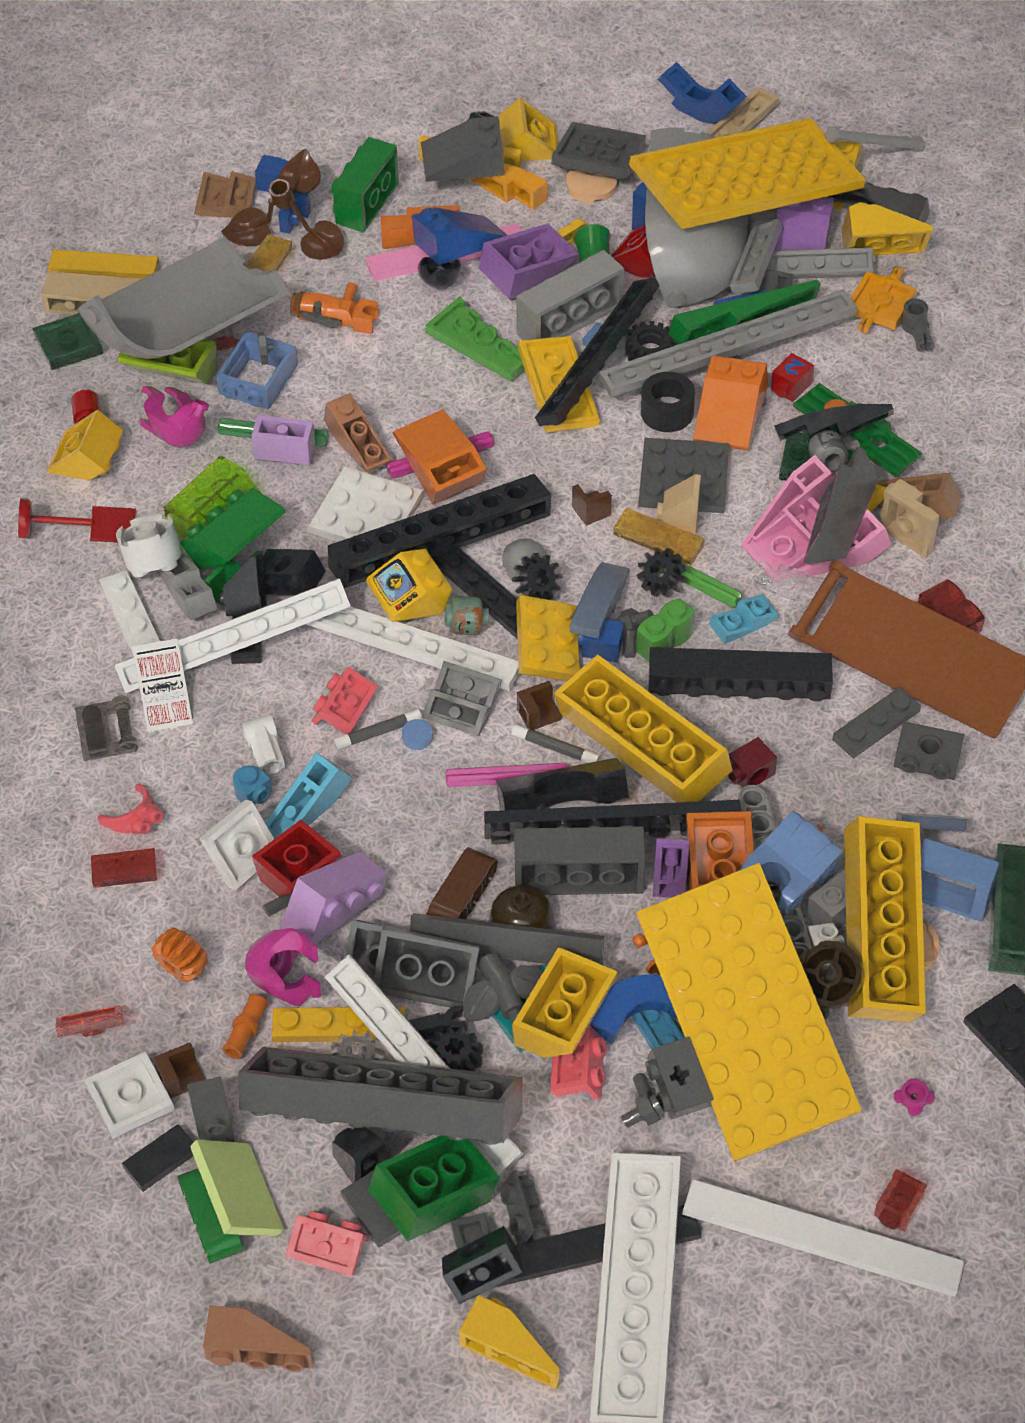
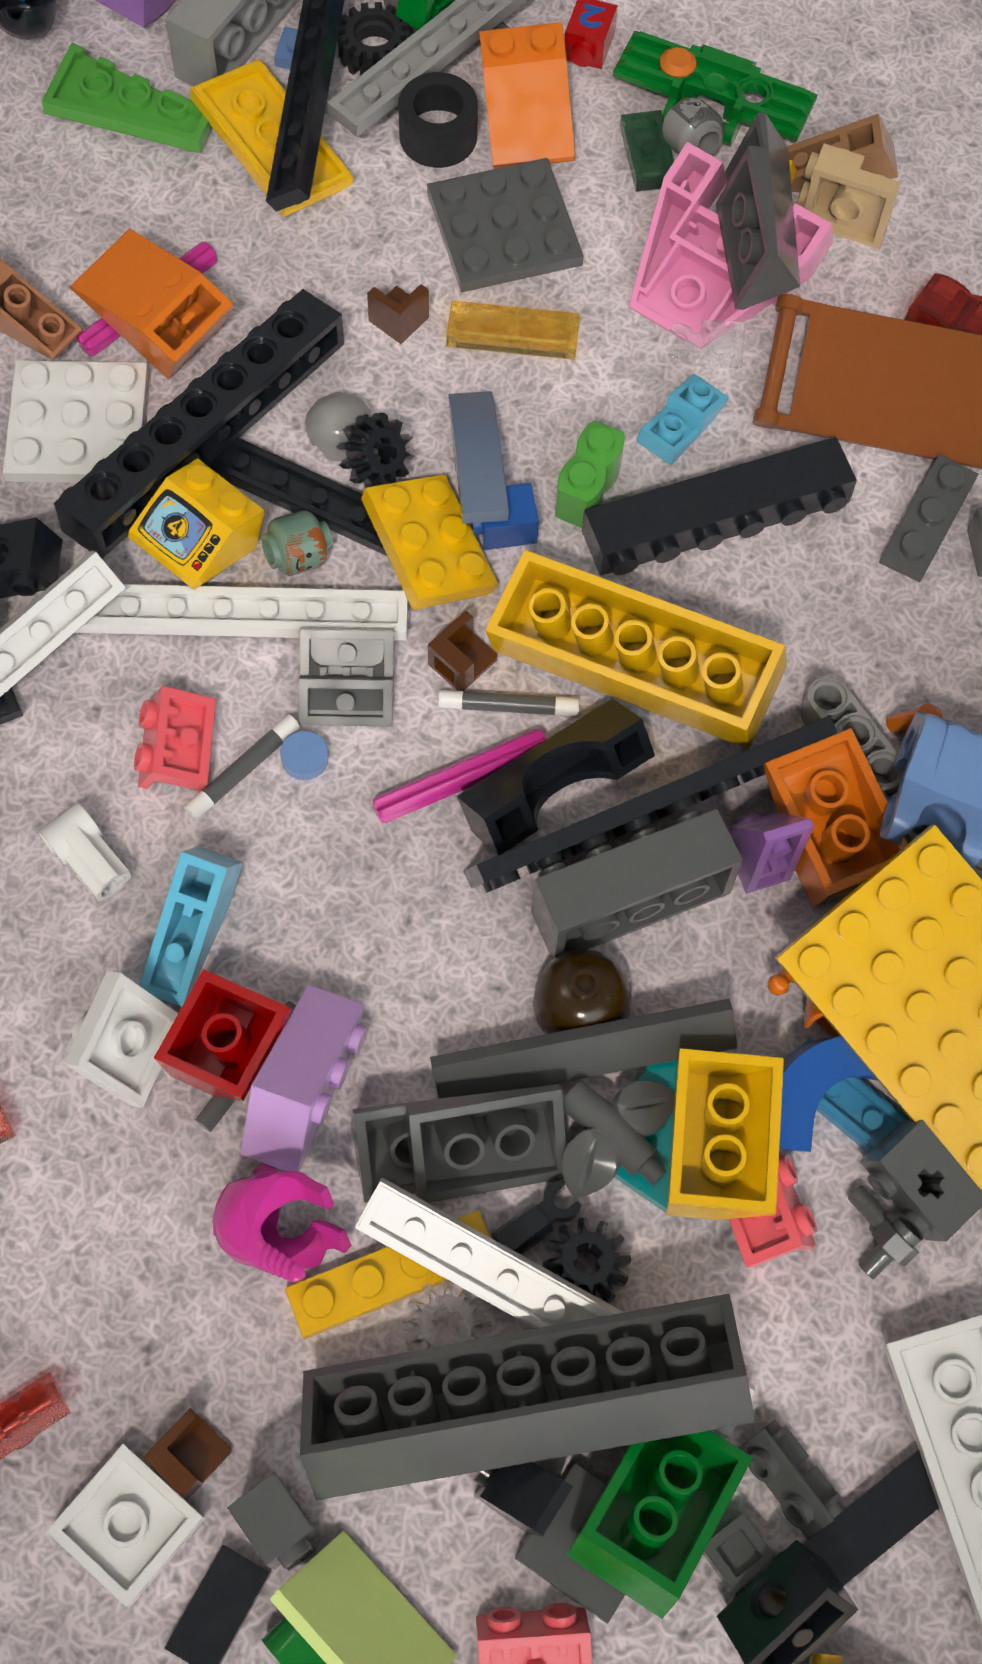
camera: 25 degrees left, 15 degrees up
(179, 954) = (108, 1260): orange gear -> none
(245, 1026) = (255, 1336): orange pin -> none
(251, 784) = (96, 928): dark azure plate -> none
(463, 885) = (479, 983): reddish brown beam -> none
(631, 620) = (538, 474): dark grey piece -> none
(671, 577) = (552, 371): black gear -> none
(681, 504) = (530, 272): tan slope -> none
(711, 586) = (601, 380): bright green axle -> none
(752, 763) = (804, 635): dark red brick -> none
(844, 418) = (698, 76): black slope -> none

